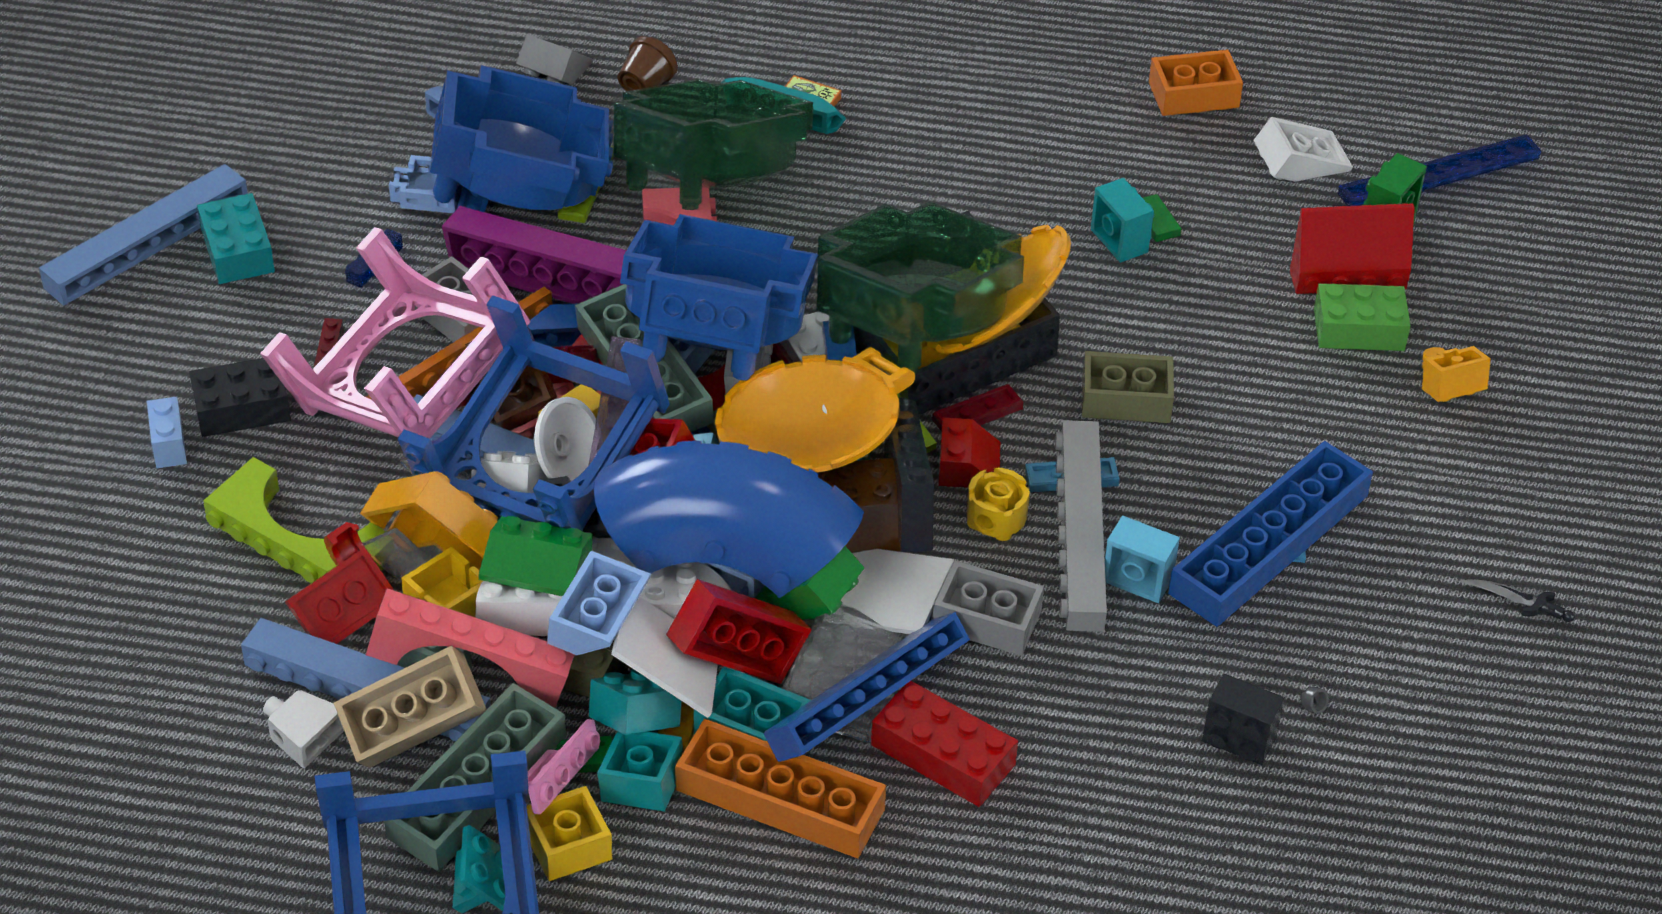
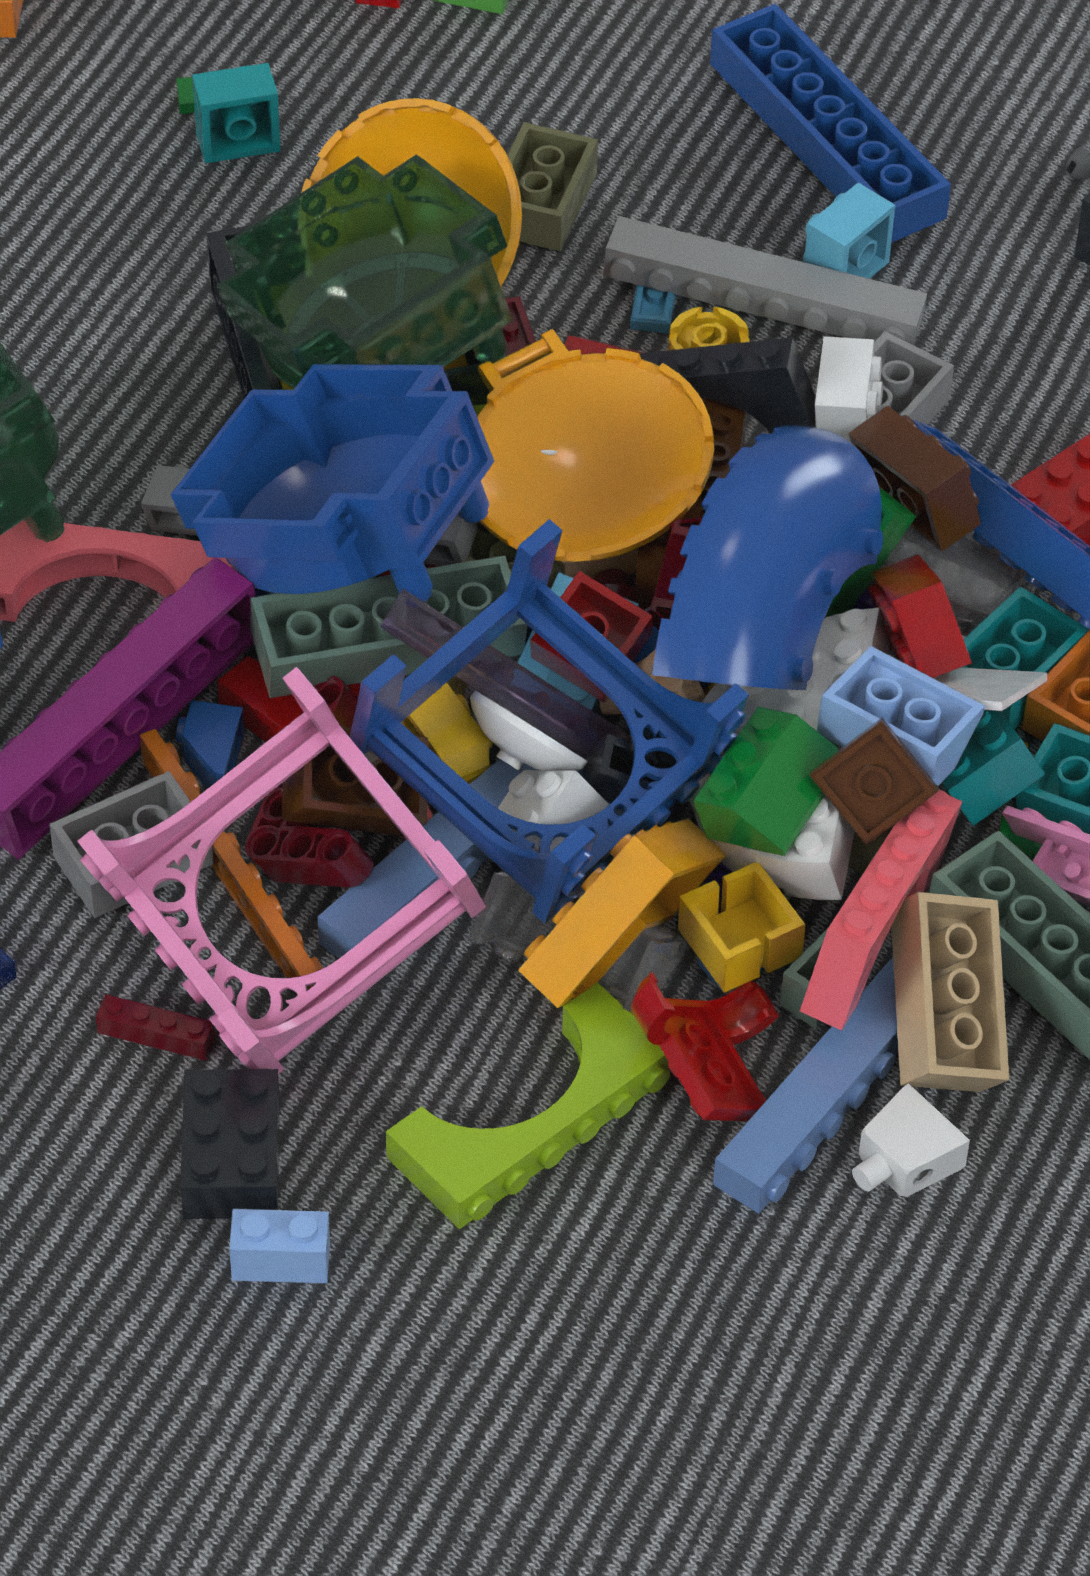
camera: 75 degrees left, 5 degrees up
(538, 602) = (874, 781): none -> reddish brown tile
(878, 612) = (919, 476): none -> reddish brown brick
(939, 555) = (847, 384): none -> white brick

